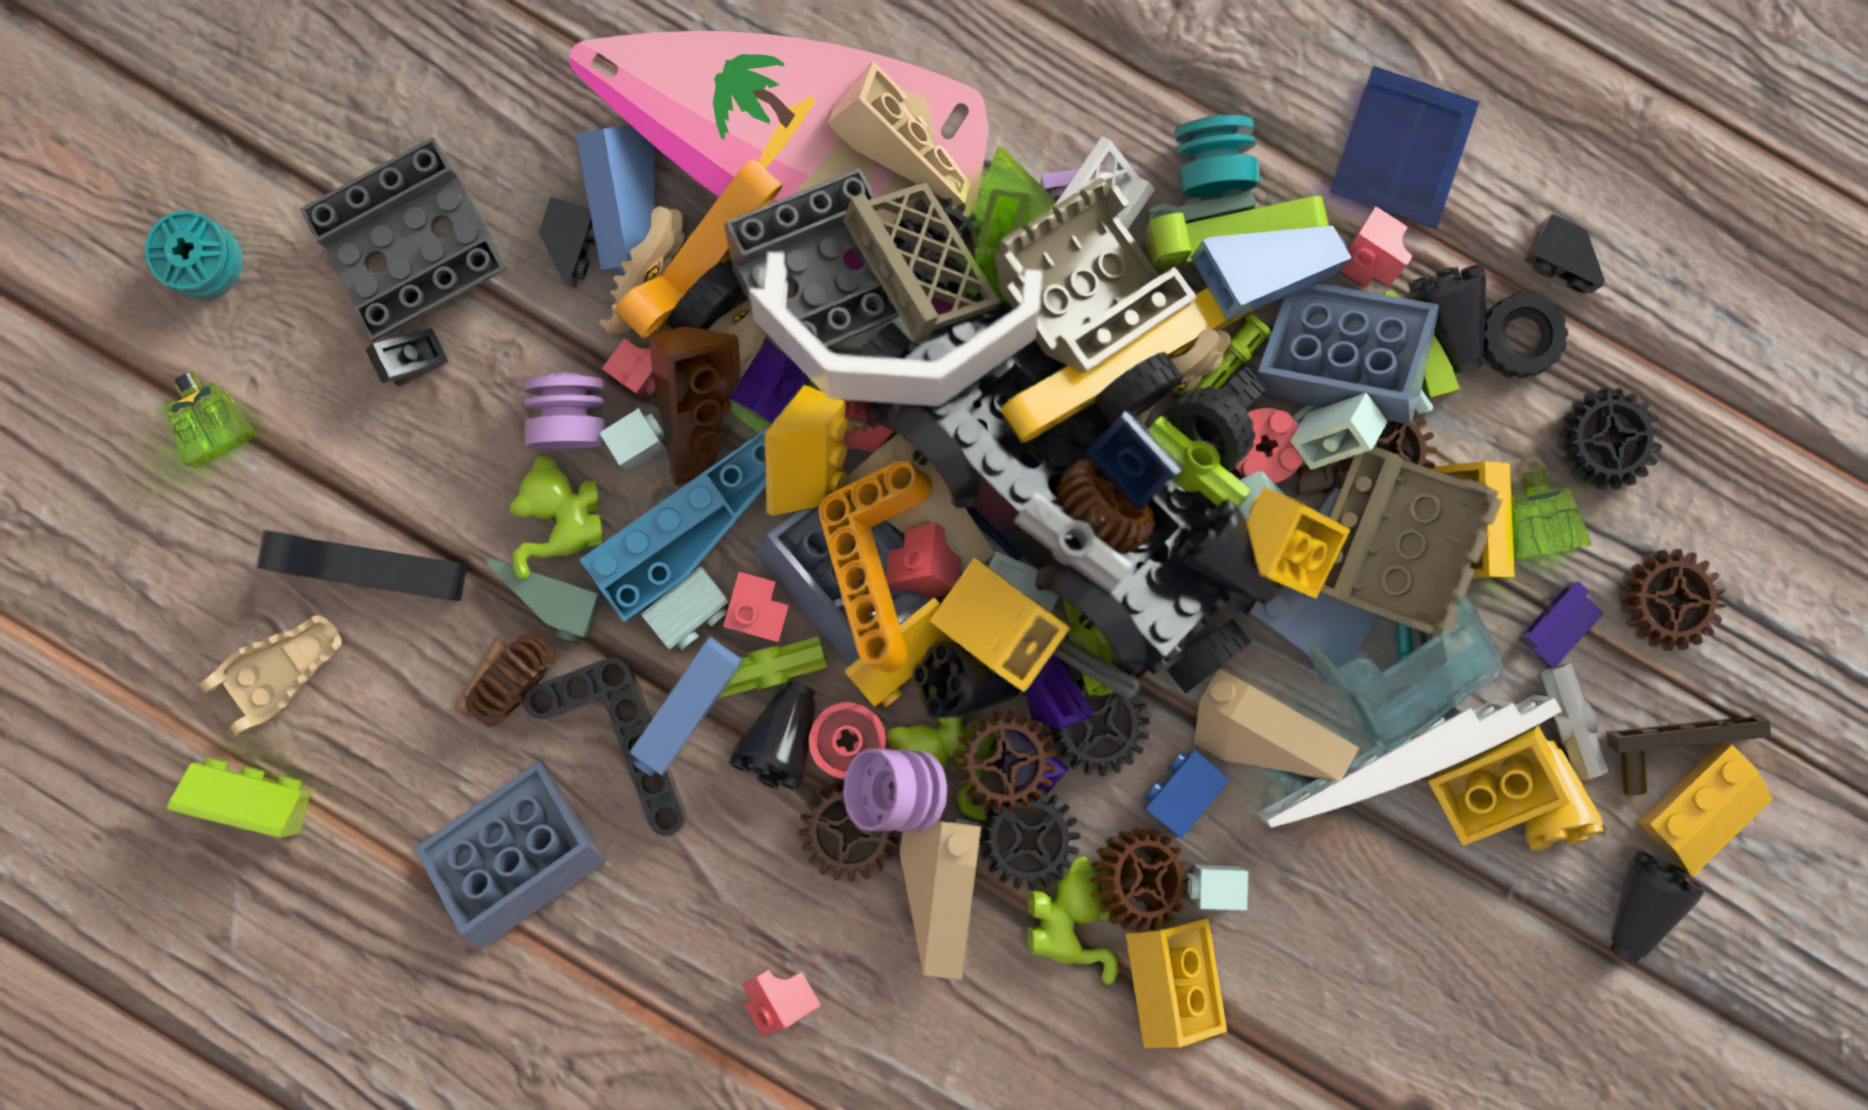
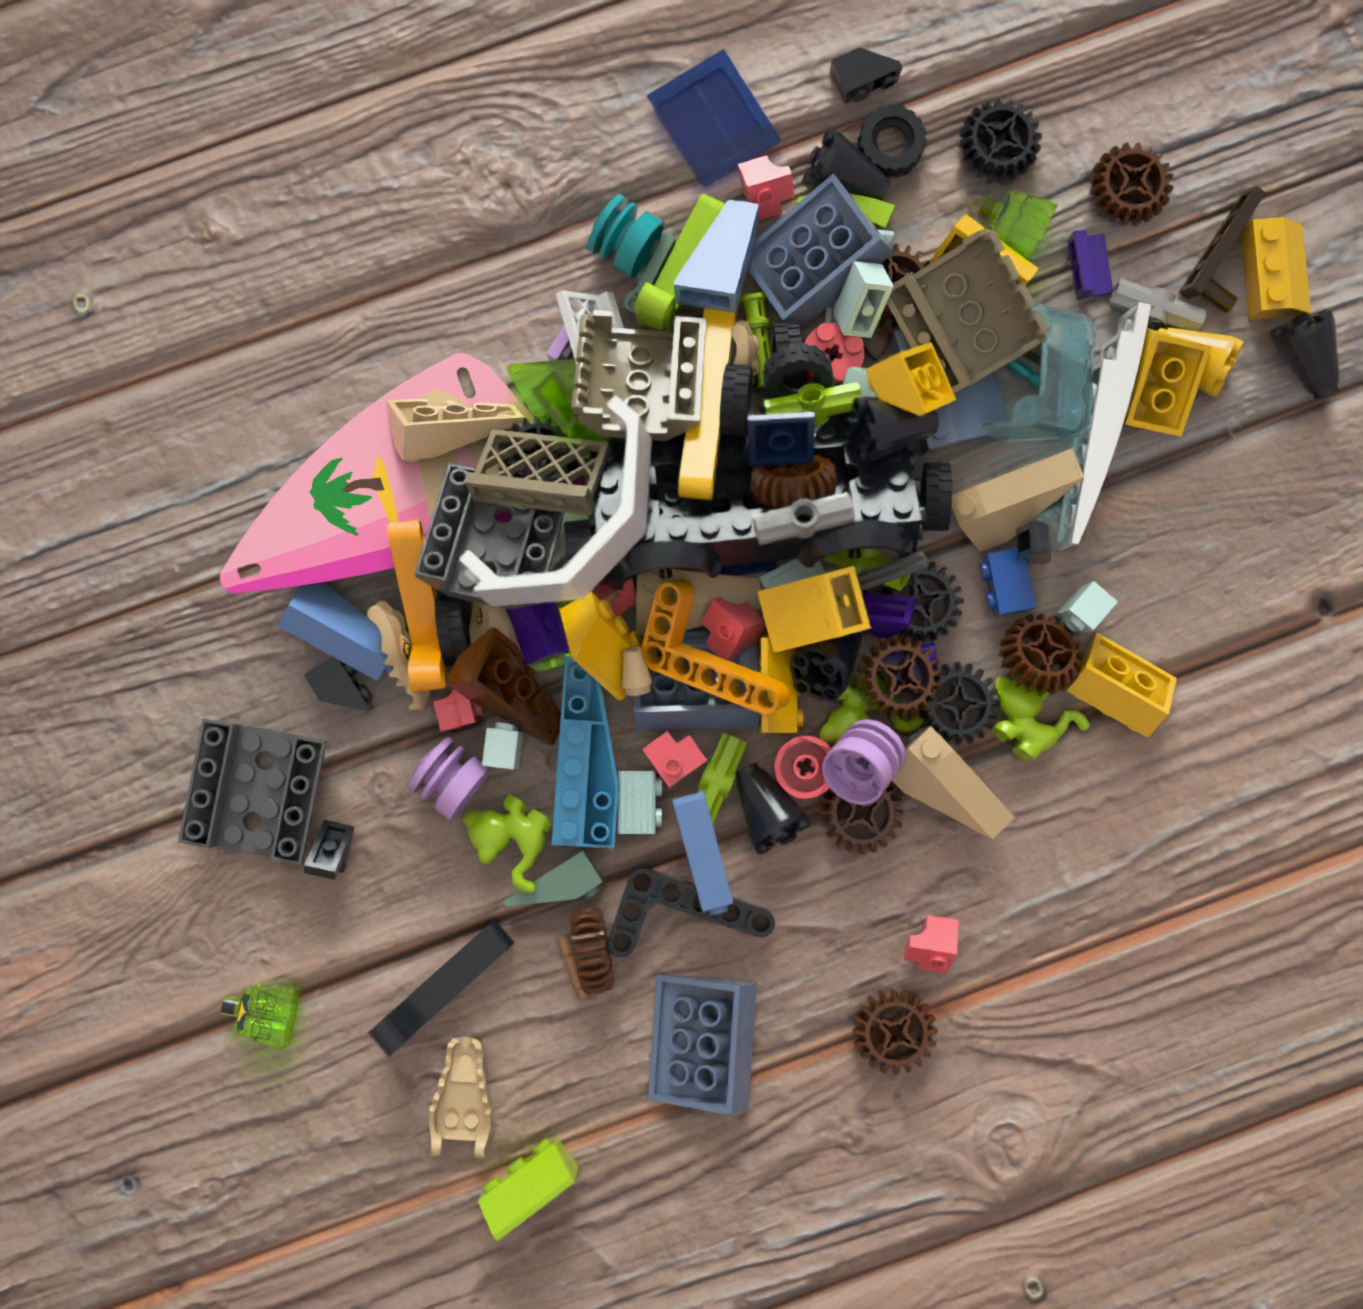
camera: 50 degrees left, 0 degrees up
(211, 265) = (166, 927): teal wheel -> none
(685, 1027) = (887, 1042): none -> reddish brown gear
(803, 507) = (635, 674): none -> tan cone
(1241, 786) = (1034, 542): none -> black slope

